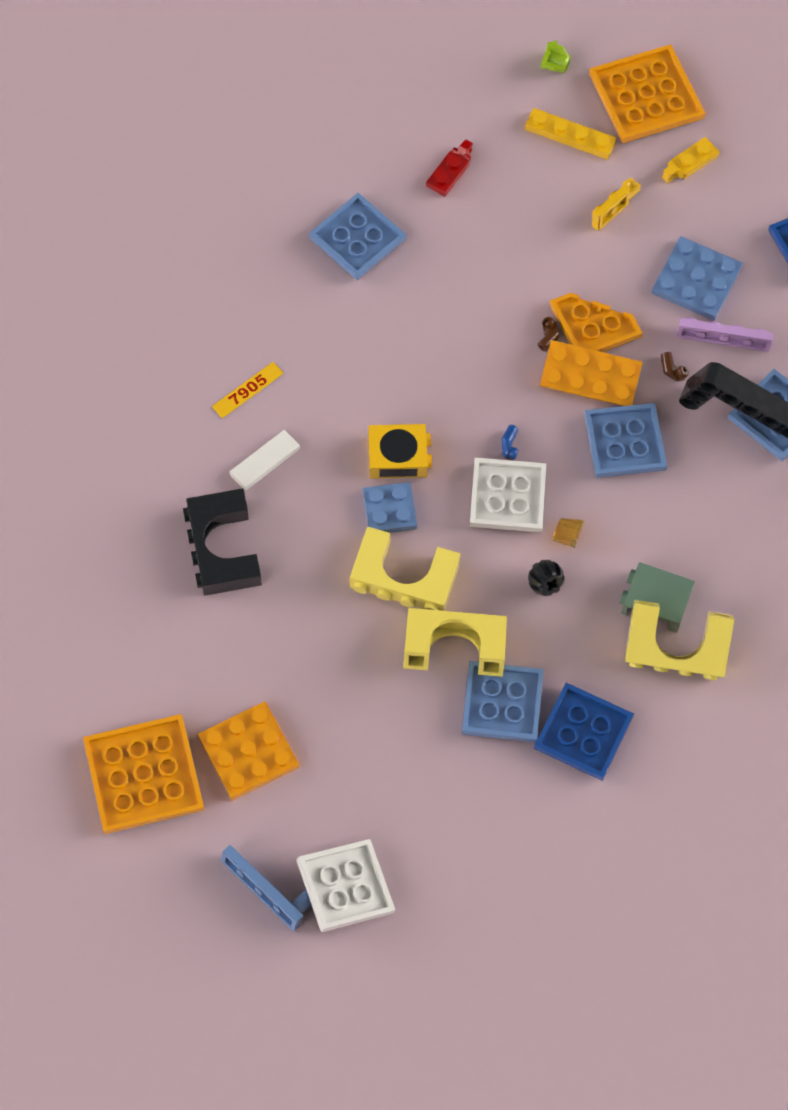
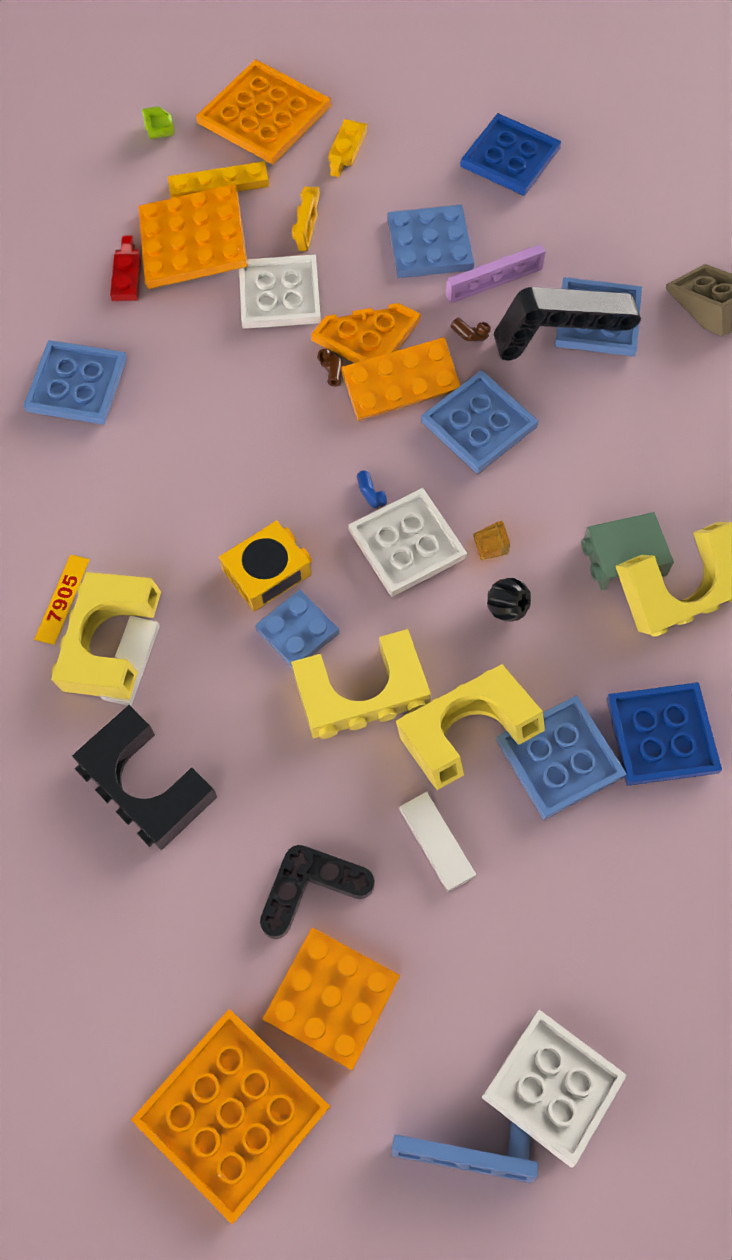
camera: 30 degrees left, 0 degrees up
(269, 406) = (98, 600): none -> light yellow arch
(287, 668) = (311, 873): none -> black beam
(382, 702) = (437, 842): none -> white tile
(517, 169) = (192, 236): none -> light orange plate
(552, 252) = (279, 292): none -> white plate

